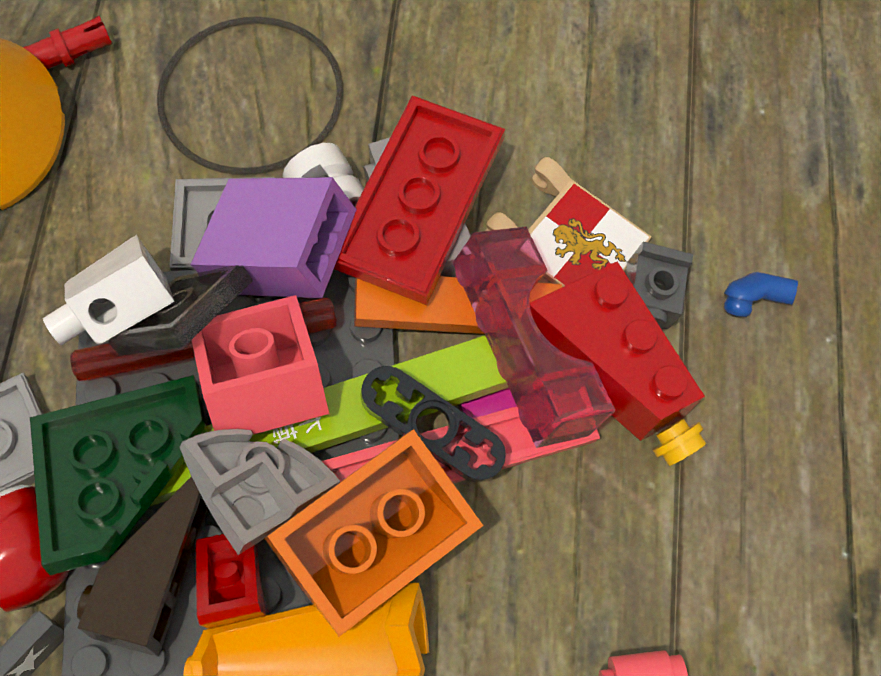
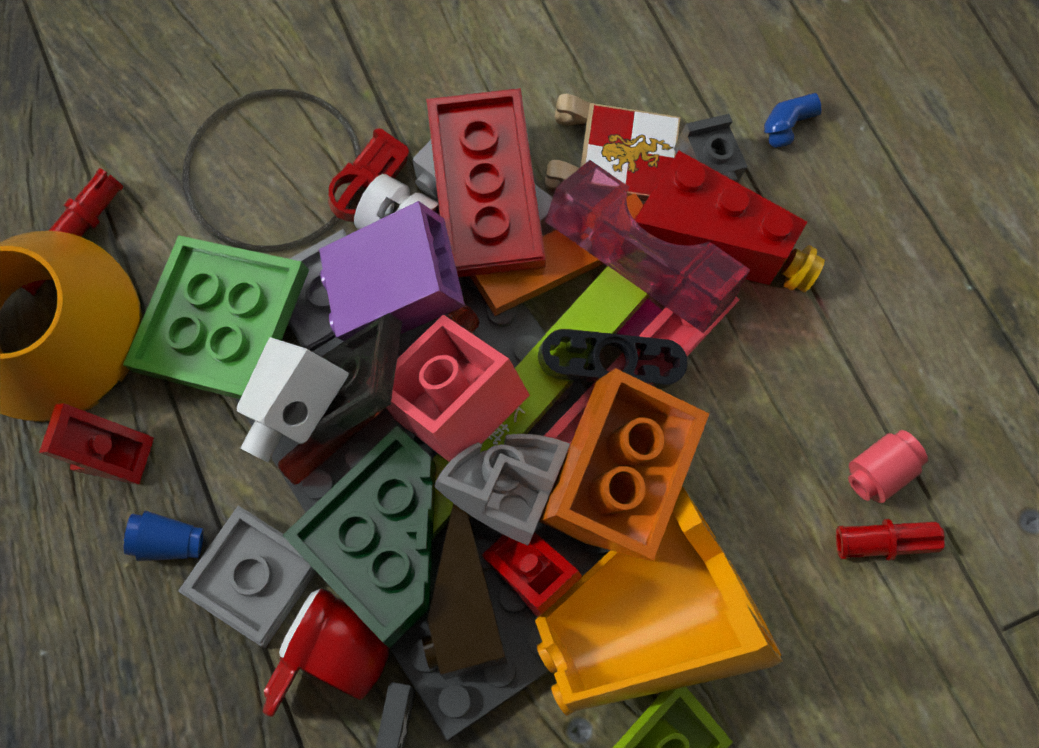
camera: 25 degrees left, 5 degrees up
(109, 190) = (214, 315): none -> bright green plate
(348, 130) = (380, 156): none -> red piece

